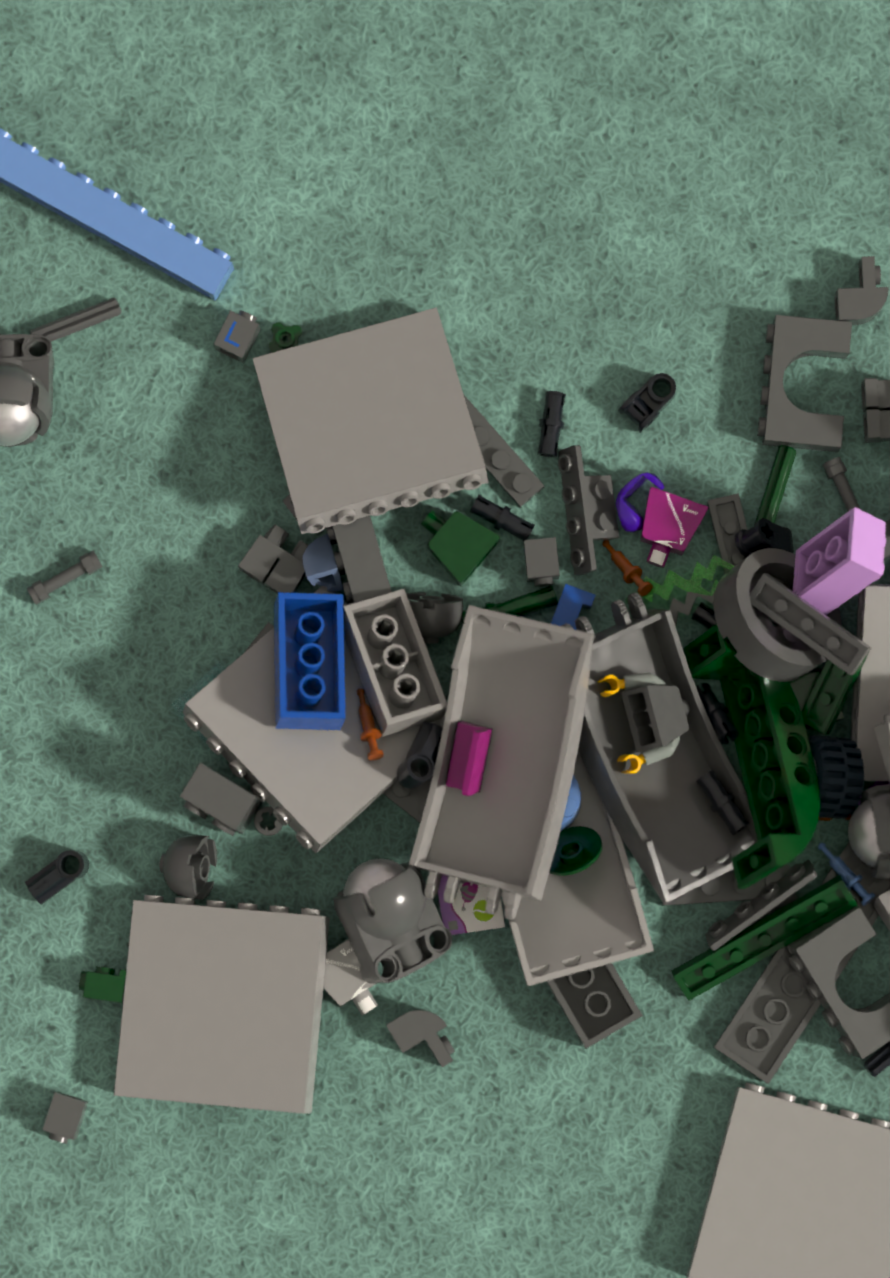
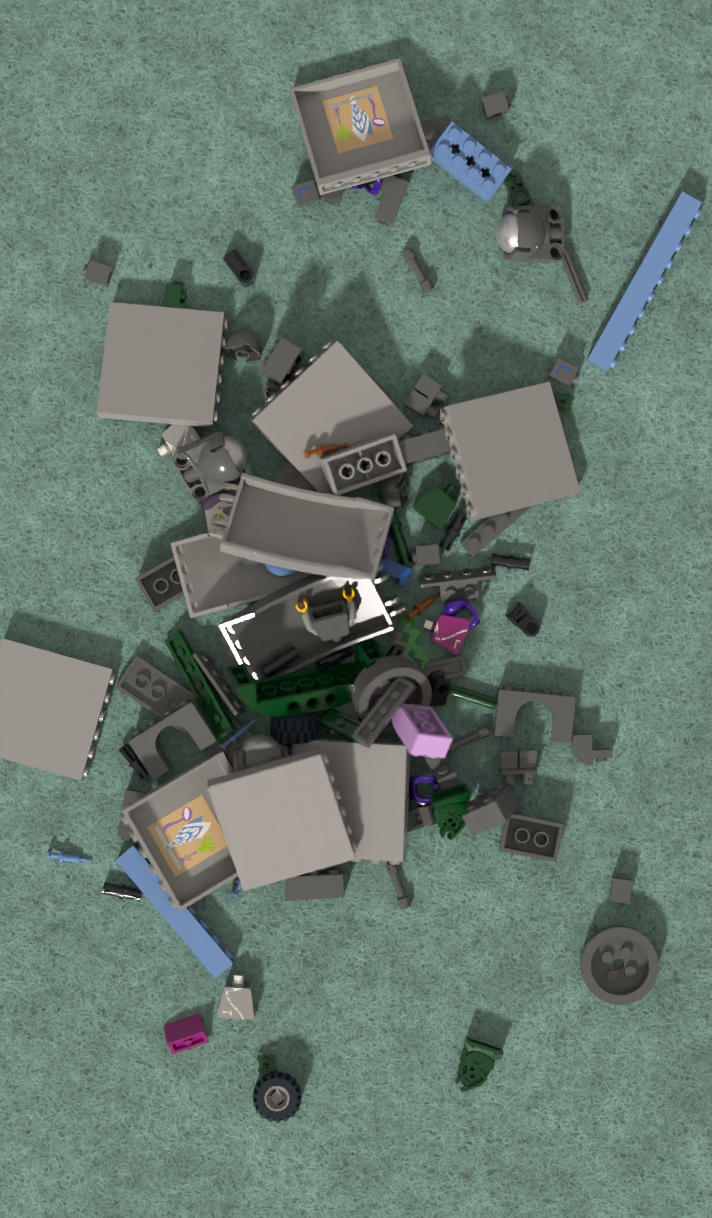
camera: 90 degrees right, 5 degrees up
(309, 661) = (362, 413): blue brick -> none
(321, 564) = (423, 421): sand blue brick -> none
(420, 1026) = (149, 483): dark grey brick -> none
(421, 754) = (308, 481): black piece -> none
(469, 758) = (305, 509): magenta panel -> none
(575, 850) = (251, 572): dark green dish -> none

